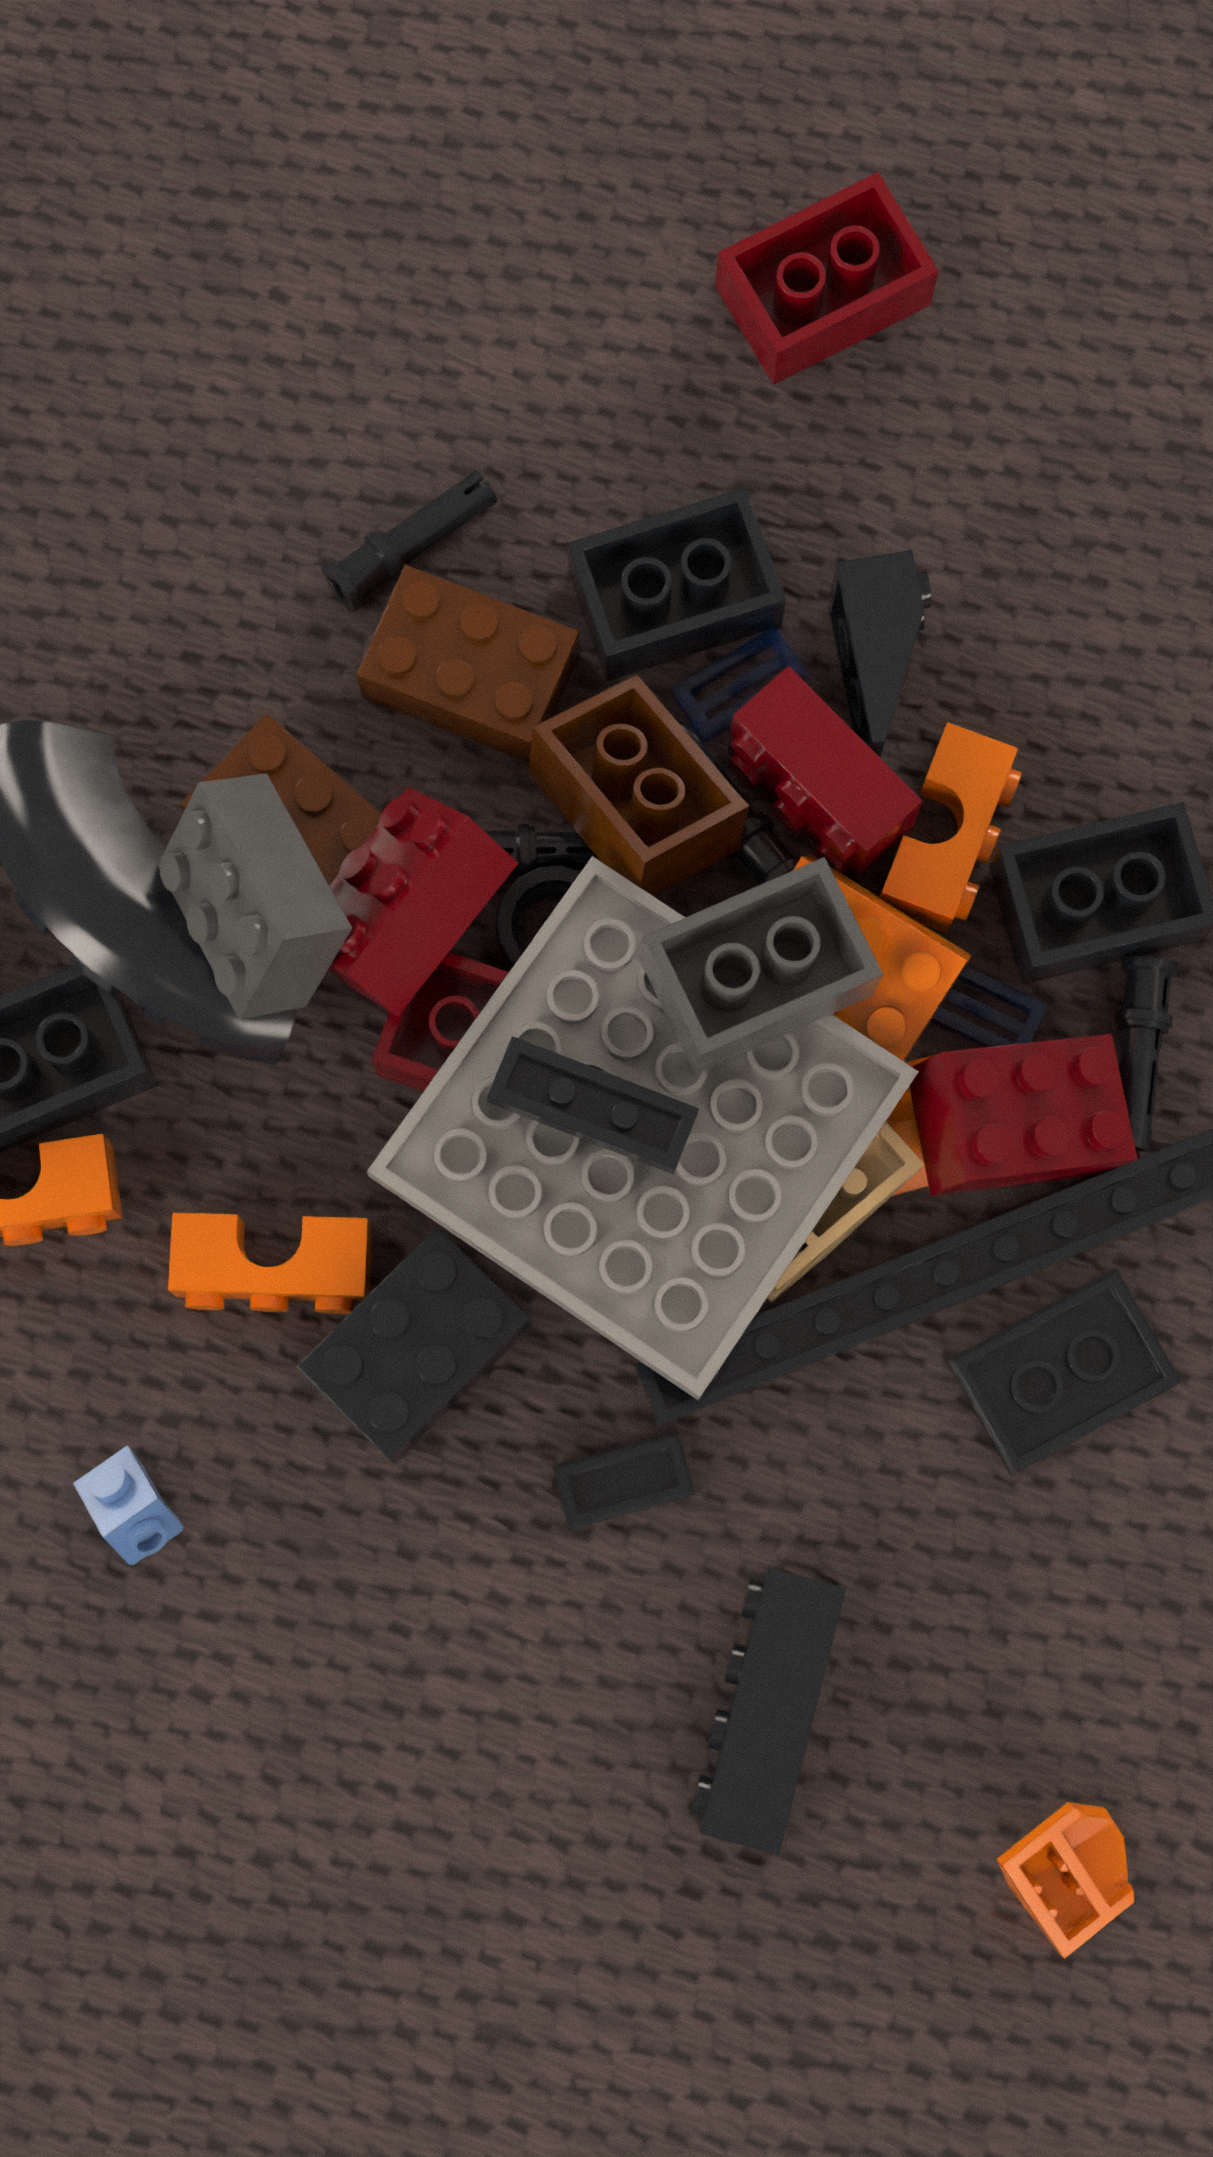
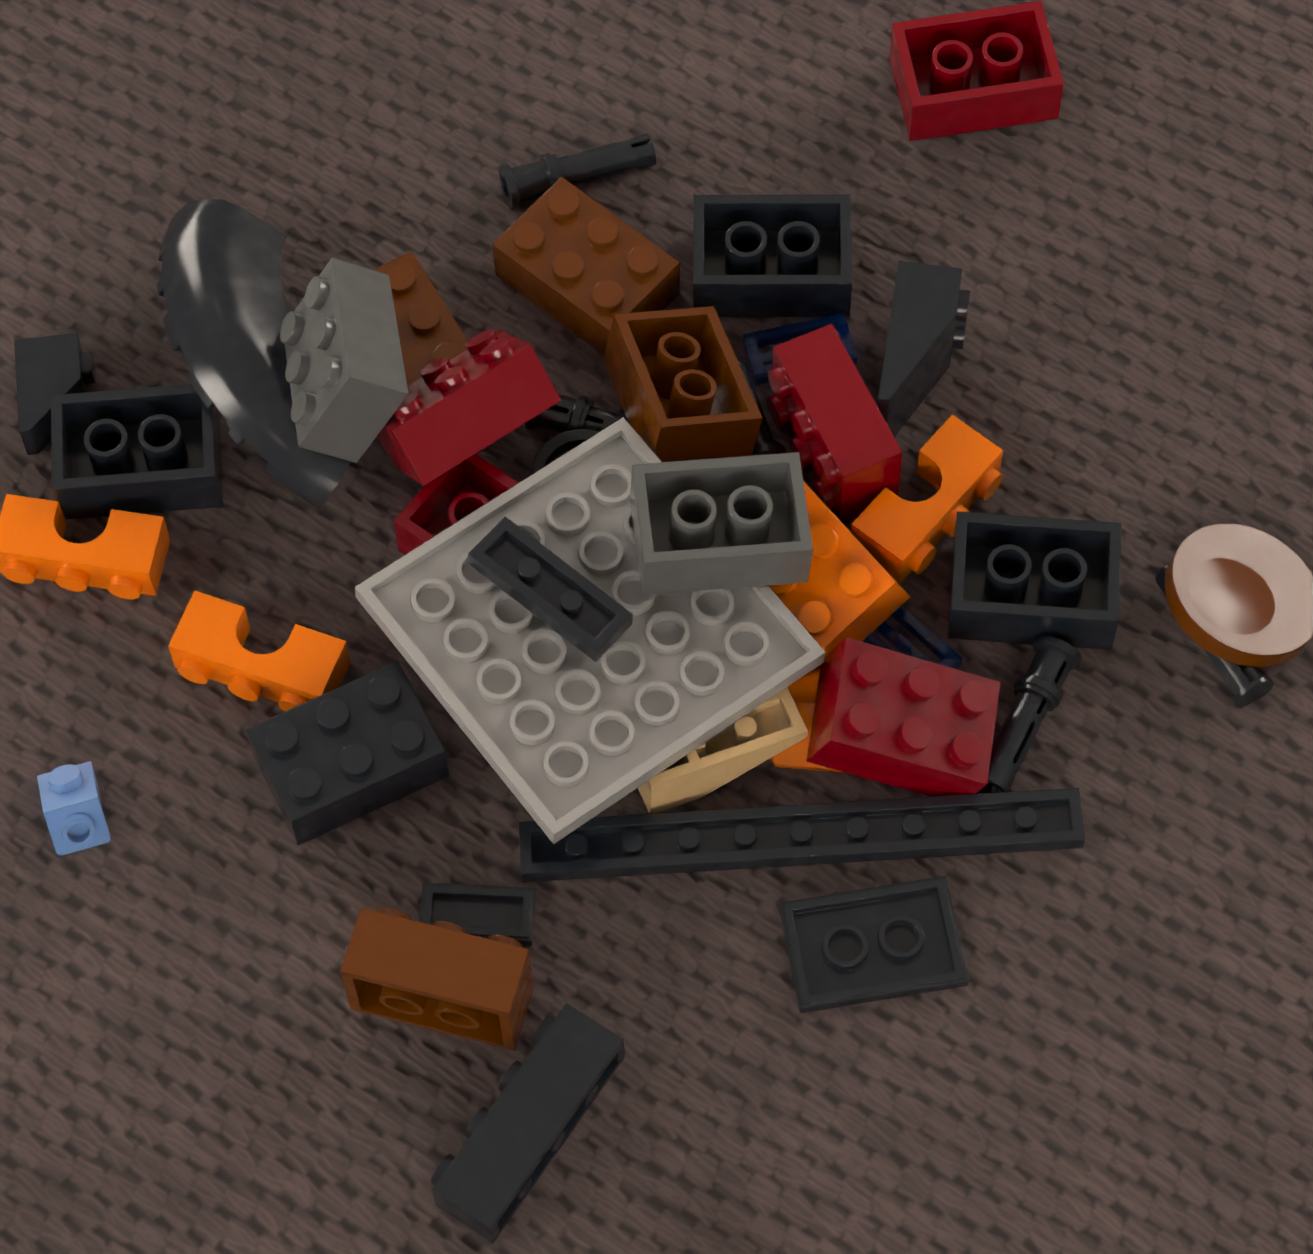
camera: 20 degrees right, 15 degrees down
(619, 1583) = (438, 977): none -> reddish brown brick

